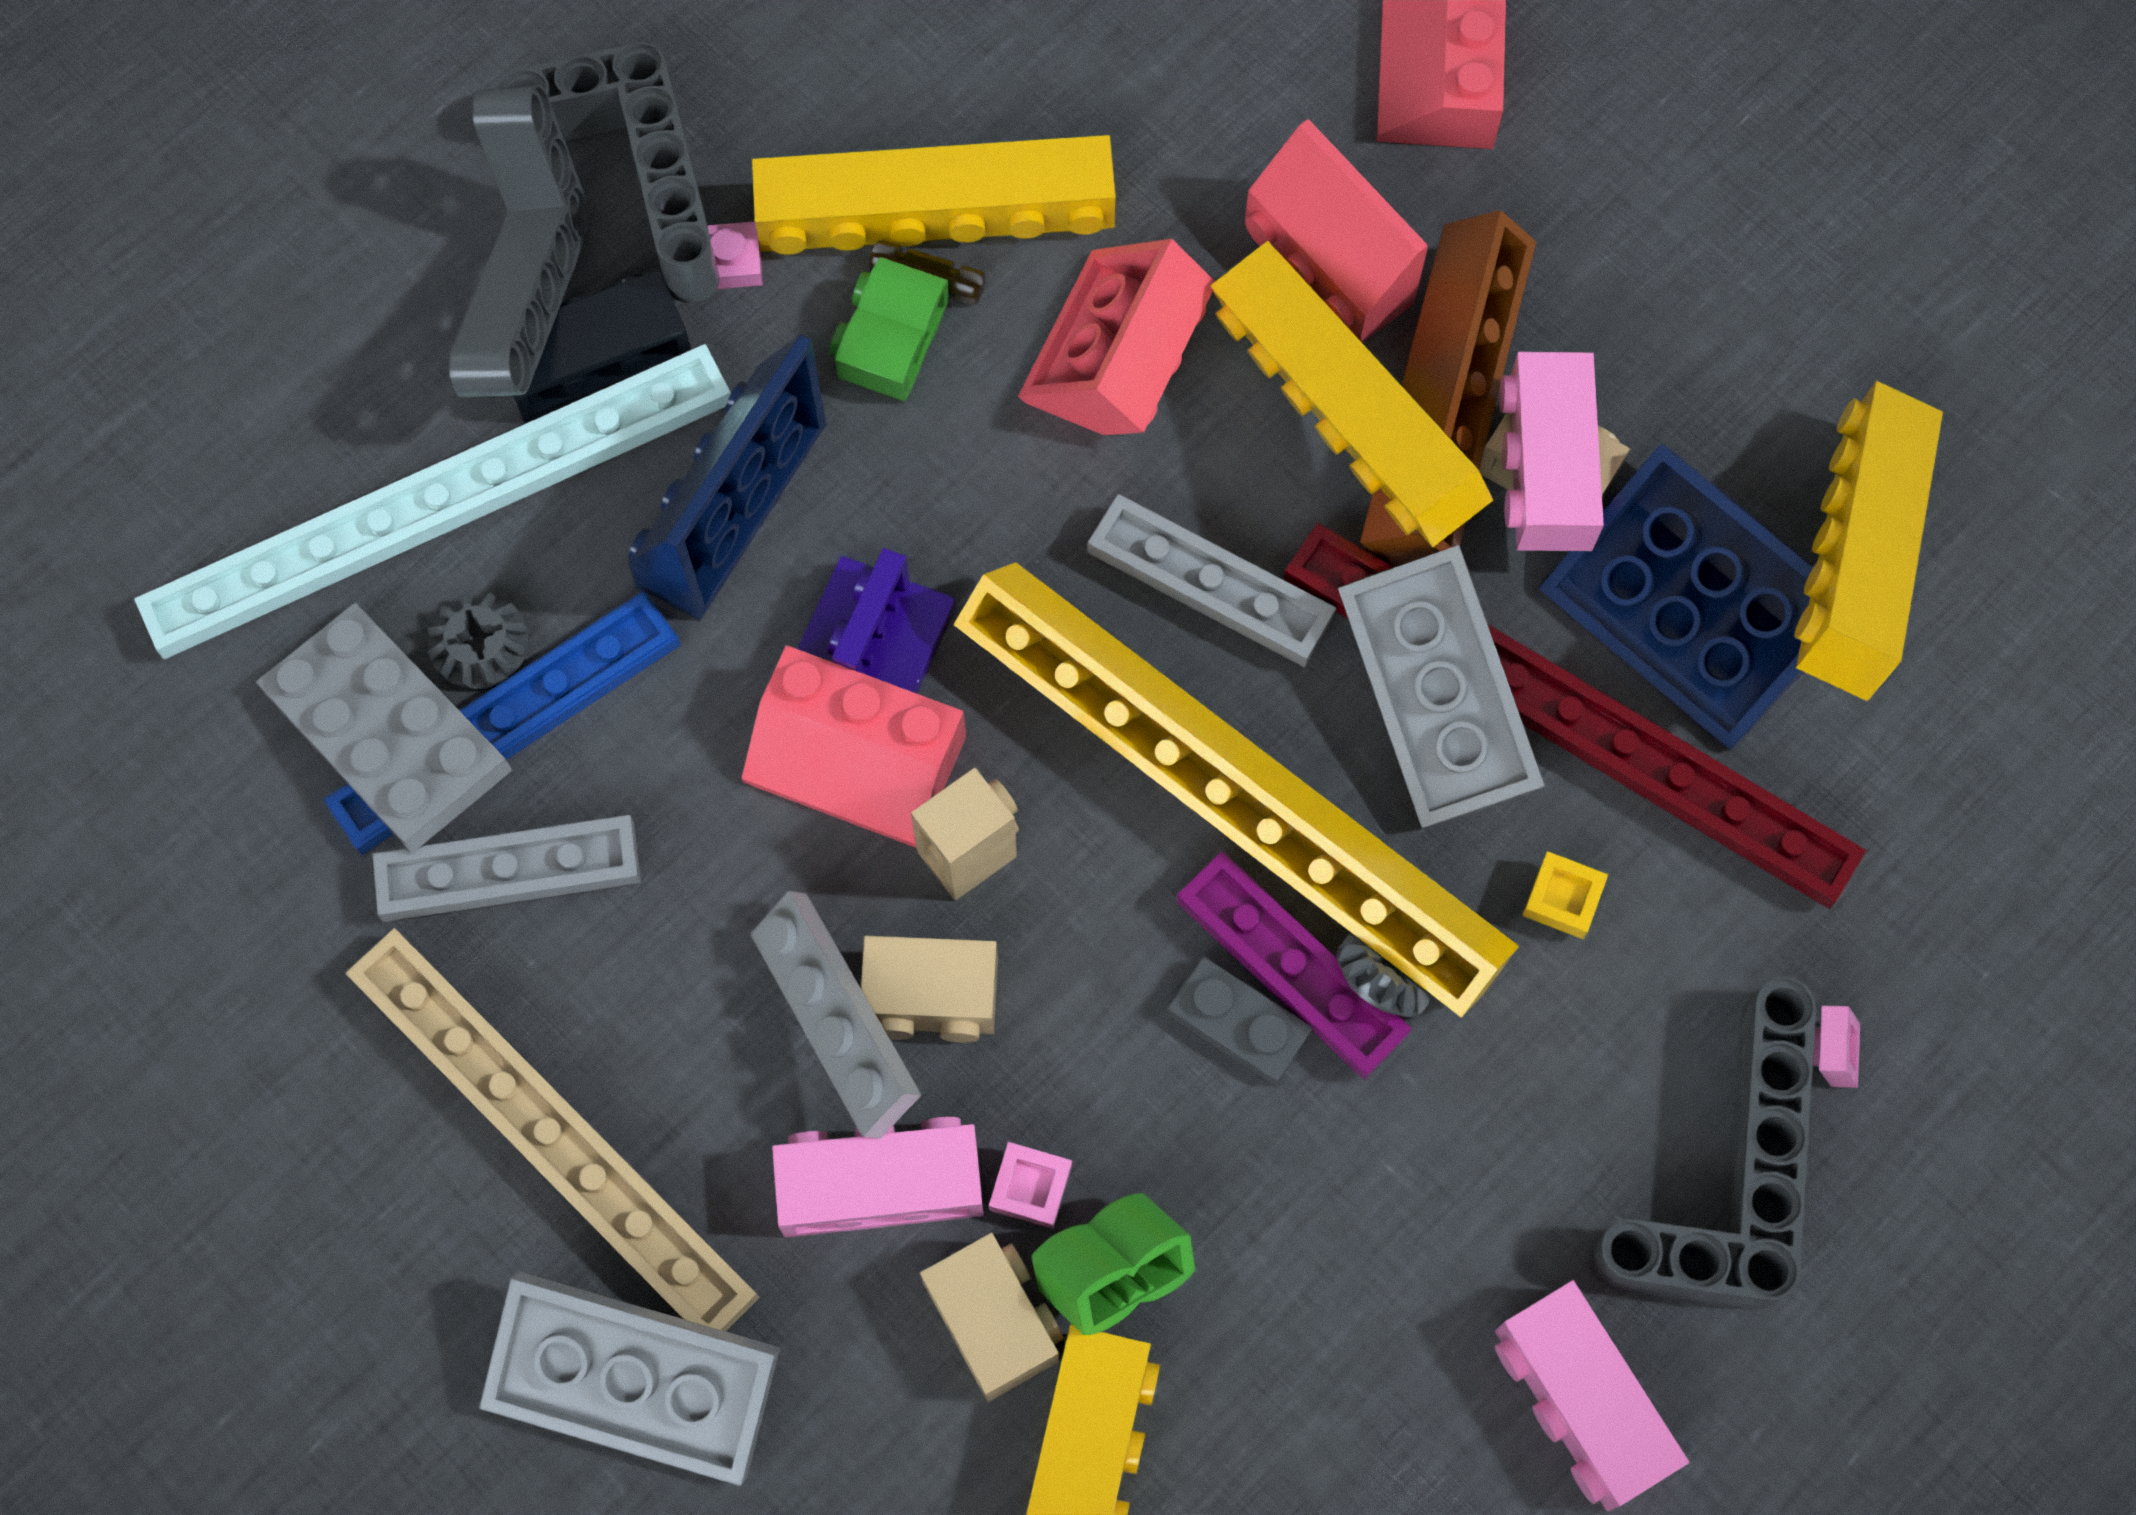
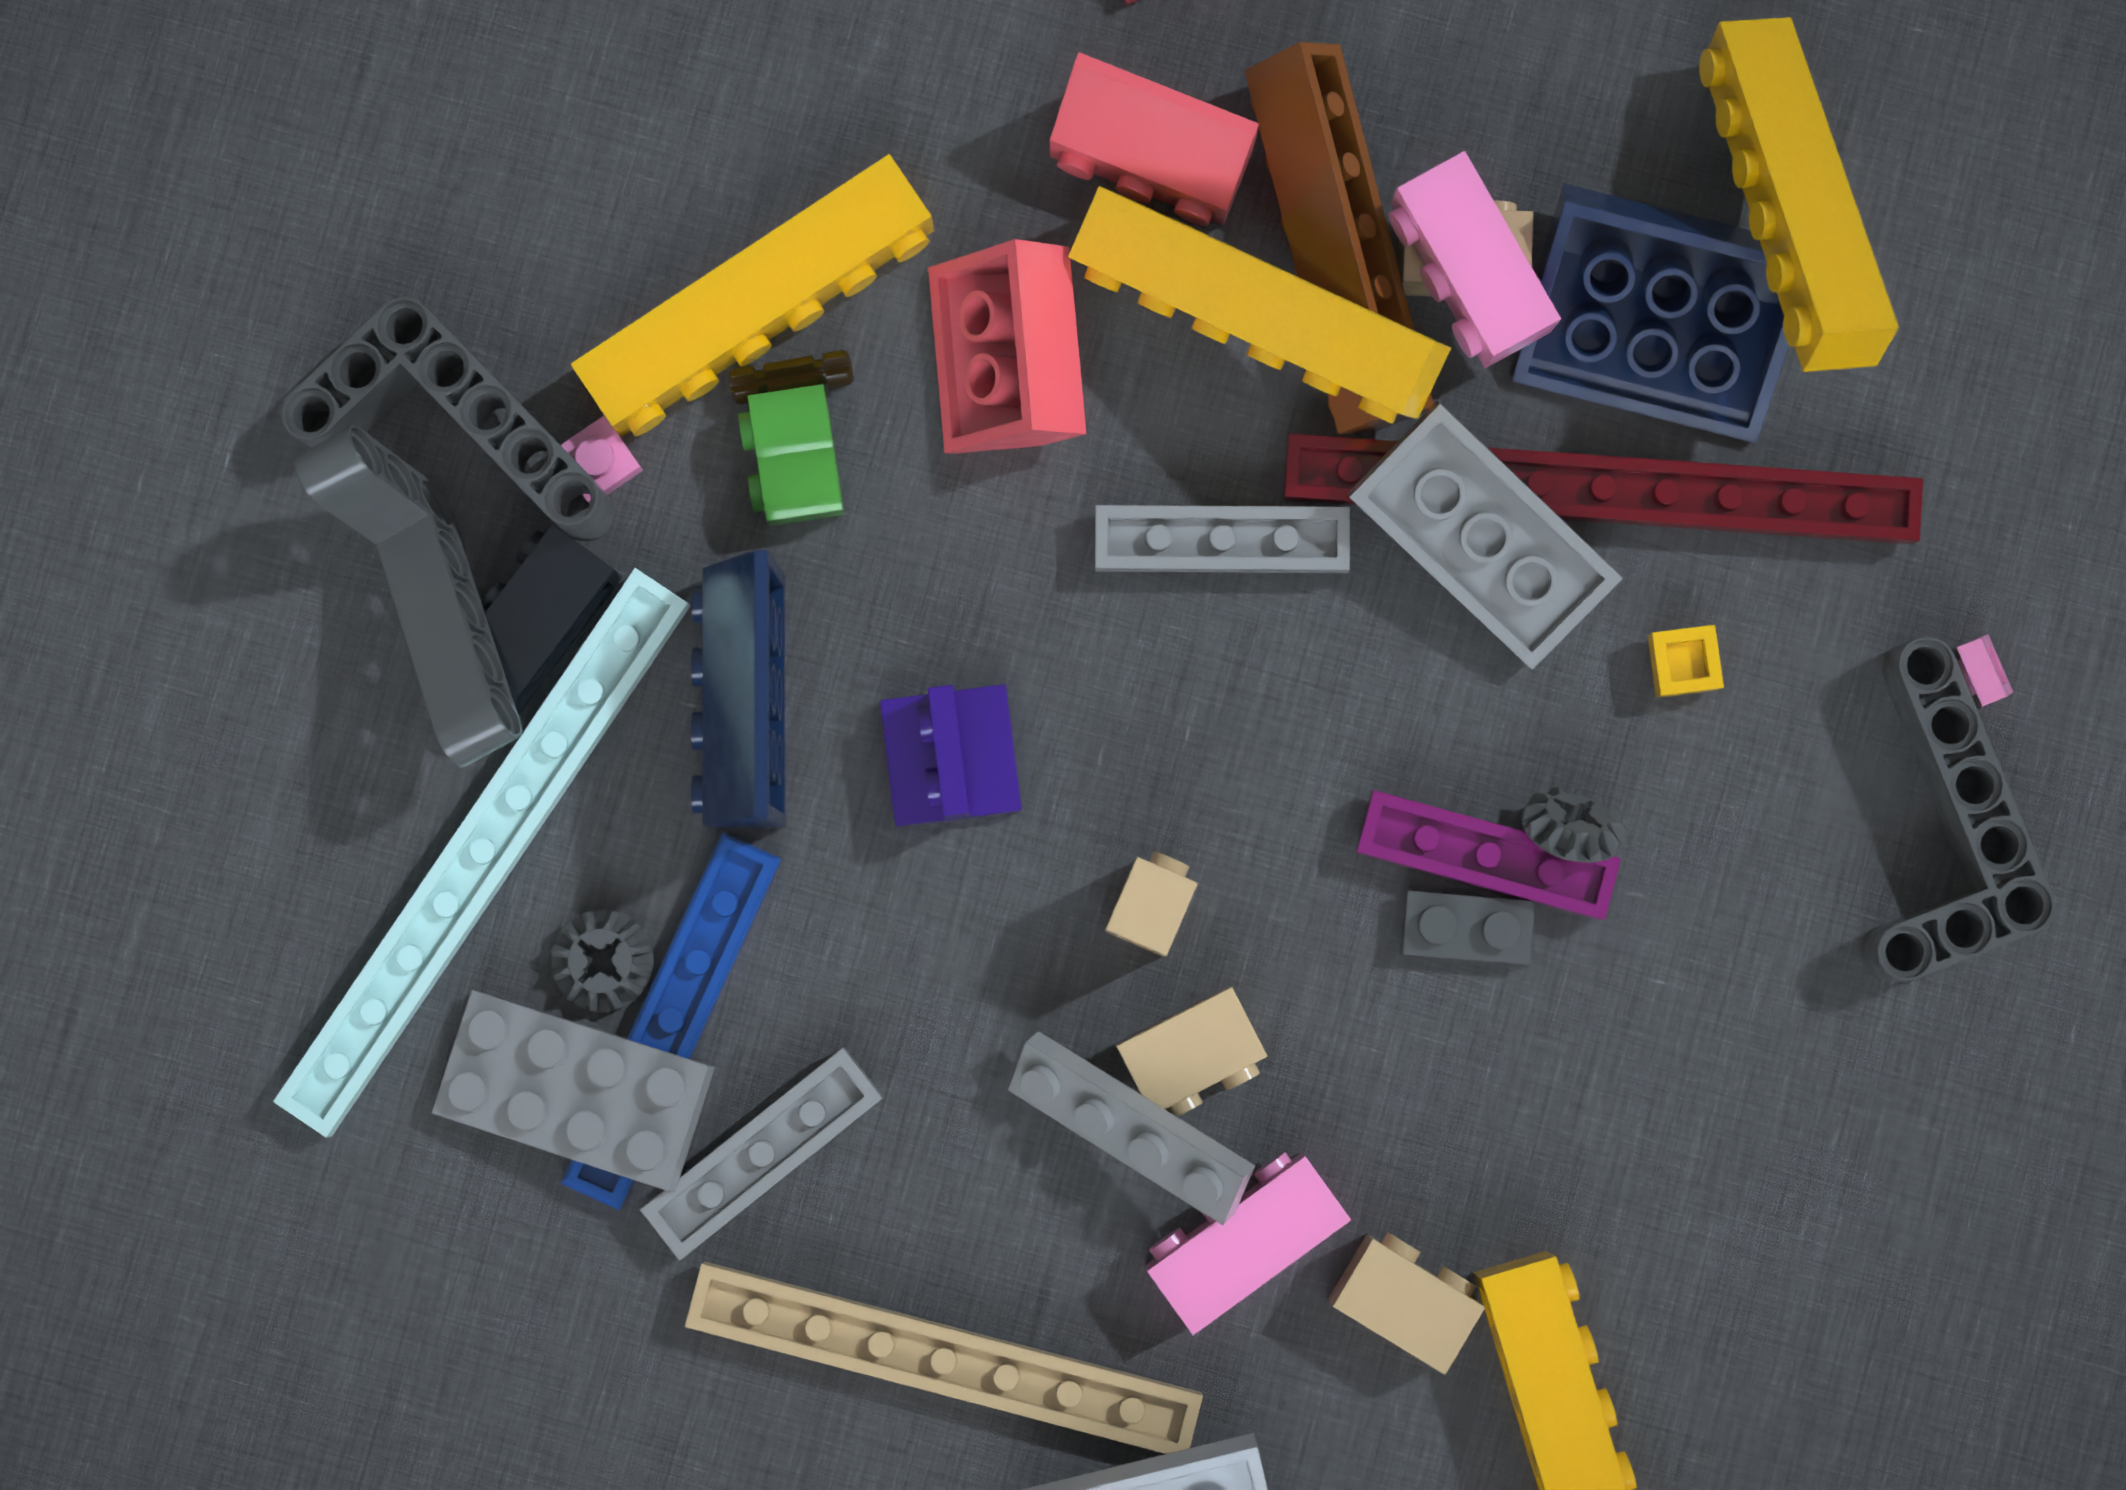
camera: 30 degrees left, 15 degrees up
(851, 744) = (998, 876): coral slope -> none
(1030, 1185) = (1374, 1172): bright pink plate -> none
(1113, 1263) = (1485, 1205): bright green brick -> none
(1237, 787) = (1353, 727): yellow brick -> none
(1588, 1398) = (1928, 1090): bright pink brick -> none

